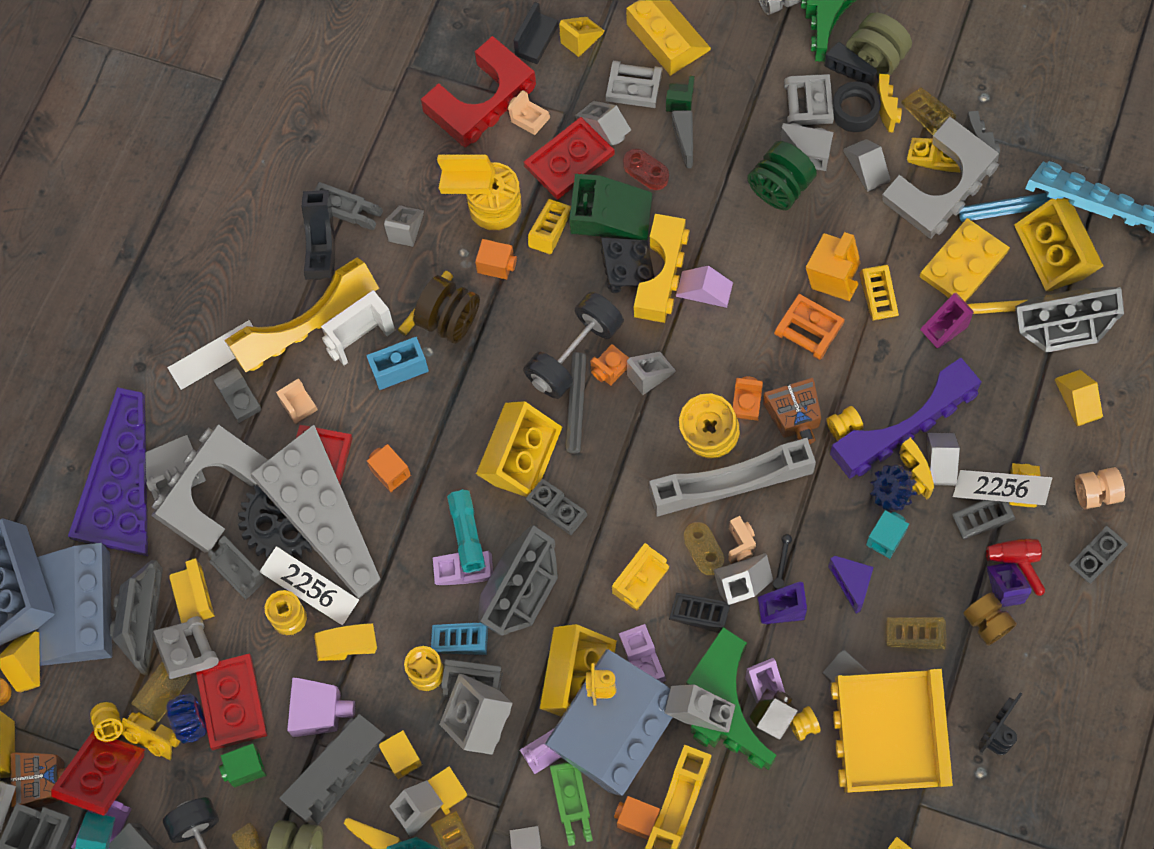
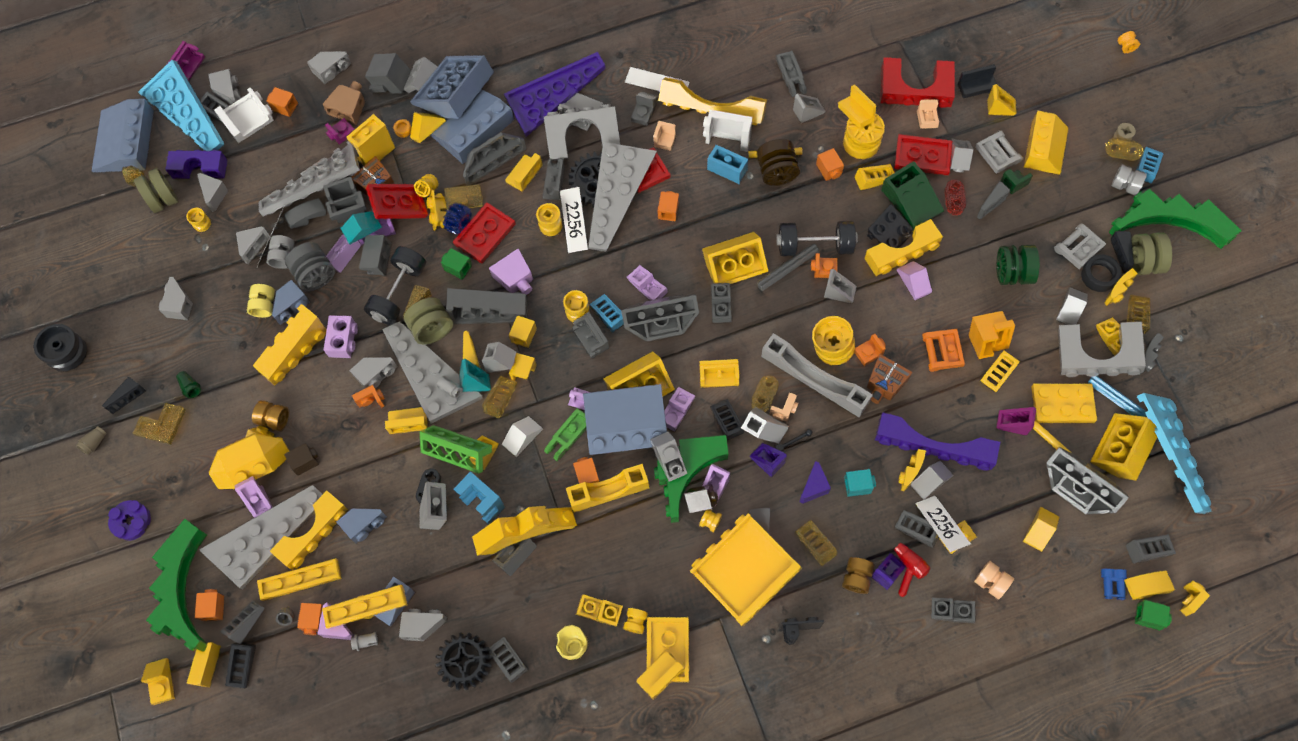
camera: 50 degrees right, 0 degrees up
(177, 652) = (487, 185): light grey plate -> none
(319, 234) = (763, 74): black arch -> none
(344, 641) = (560, 259): yellow slope -> none
(466, 531) = (667, 268): teal axle -> none
(475, 715) = (572, 350): light grey slope -> none
(600, 684) = (632, 391): yellow hinge -> none
(813, 142) = (1052, 266): light grey slope -> none
(844, 423) = (903, 410): yellow wheel -> none
(893, 487) = (888, 464): clear blue gear -> none

